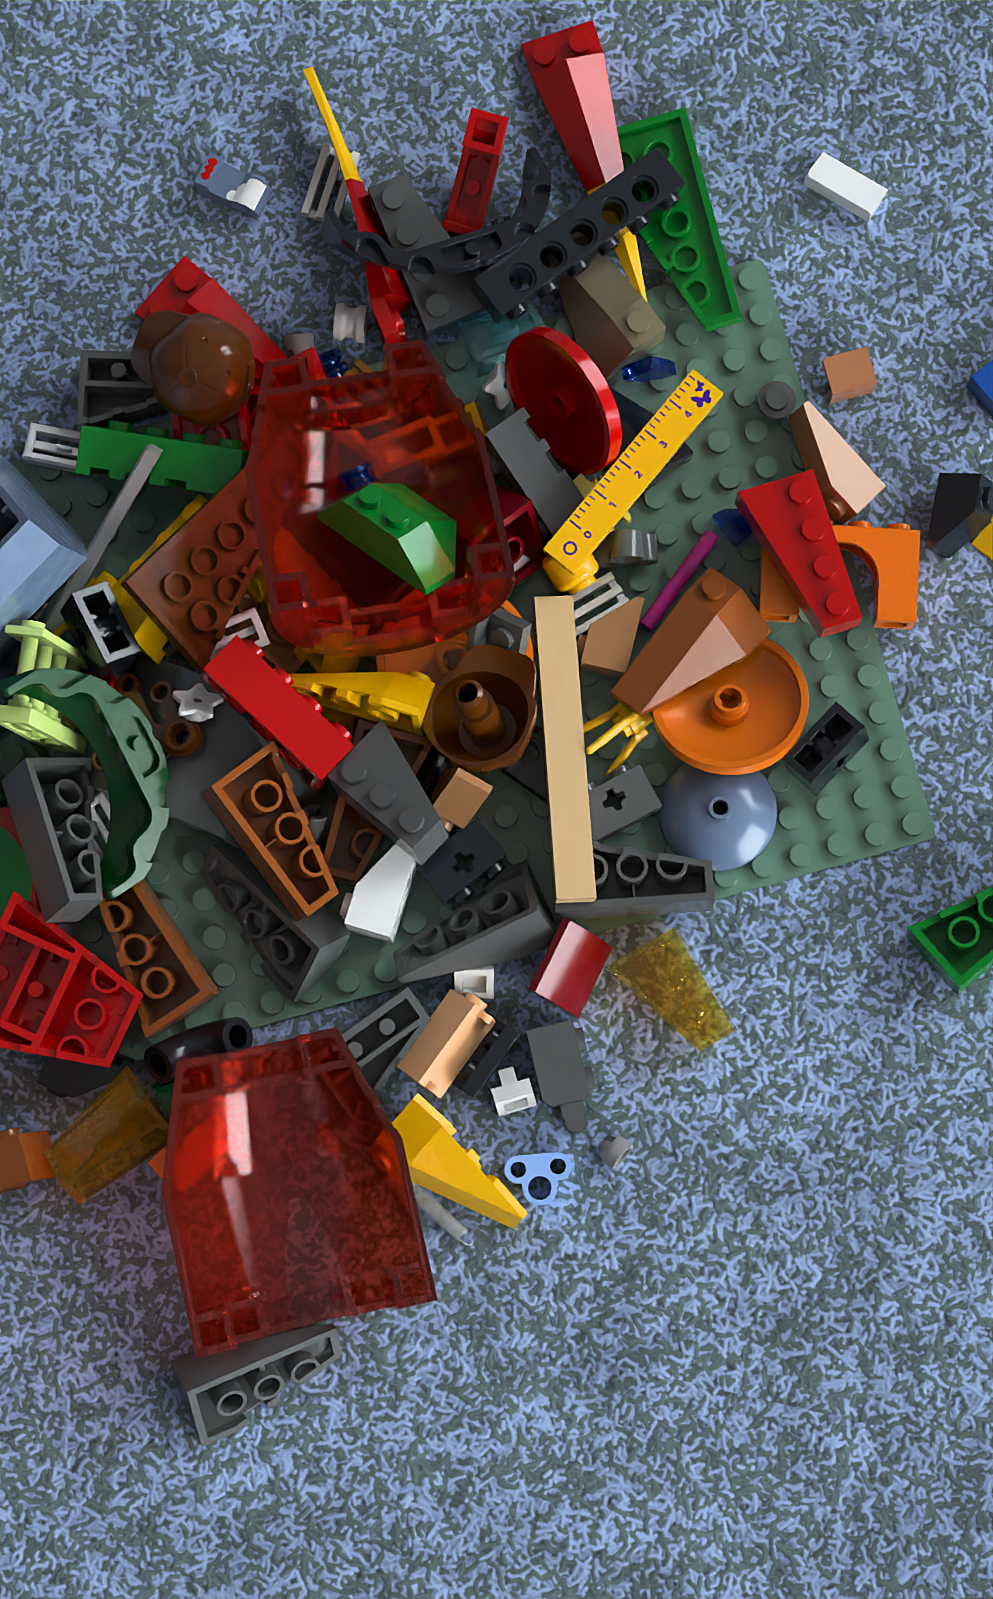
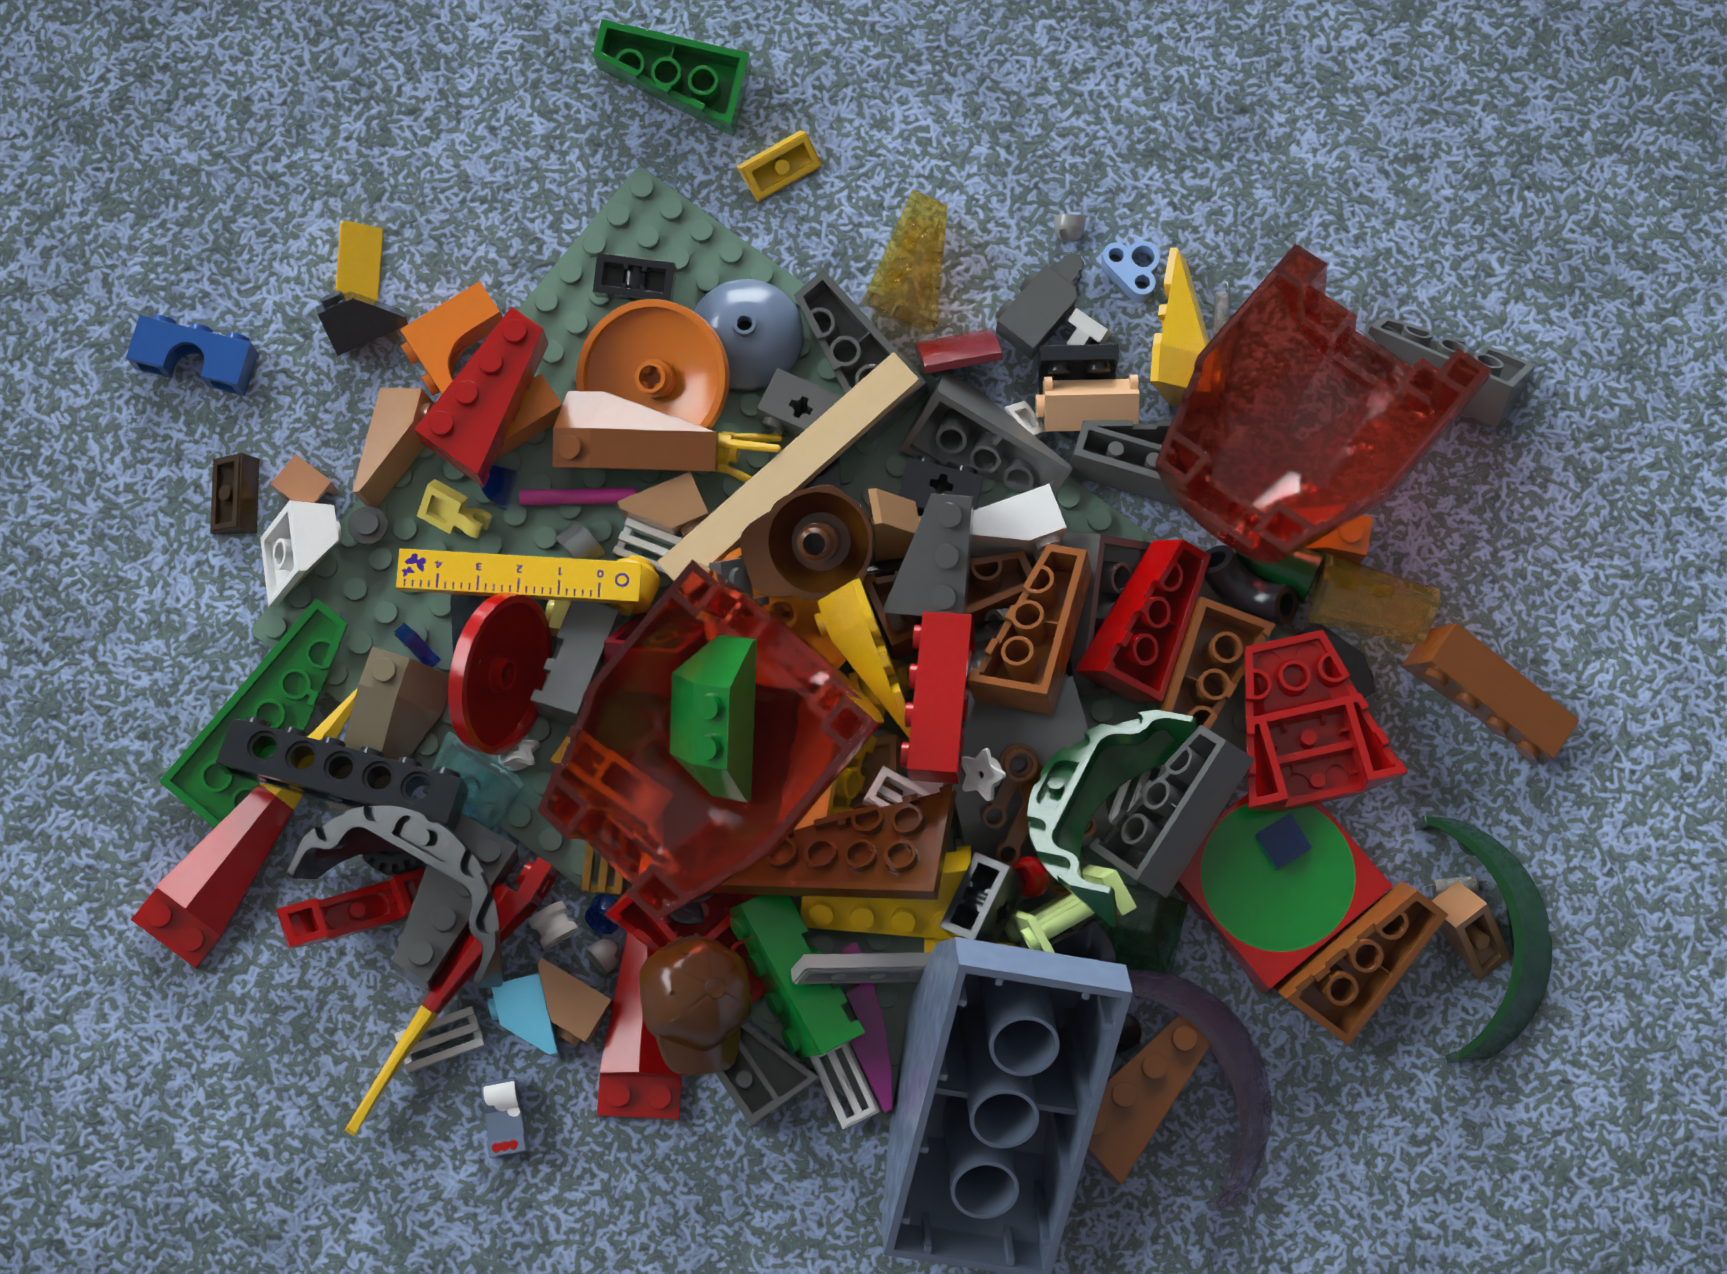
camera: 130 degrees left, 5 degrees down
(80, 492) = (871, 1046): none -> magenta slope
(227, 940) = (1148, 623): none -> red wedge
(281, 294) = (572, 1004): none -> medium nougat slope
(296, 256) = (524, 1011): none -> medium azure slope
(356, 477) = (691, 794): clear blue bush -> none
(739, 468) = (447, 510): none -> light yellow plate
(797, 333) = (296, 545): none -> white slope
(845, 186) = (136, 607): white slope -> none
(851, 952) = (779, 165): none -> yellow slope
(884, 322) = (235, 494): none -> dark brown slope

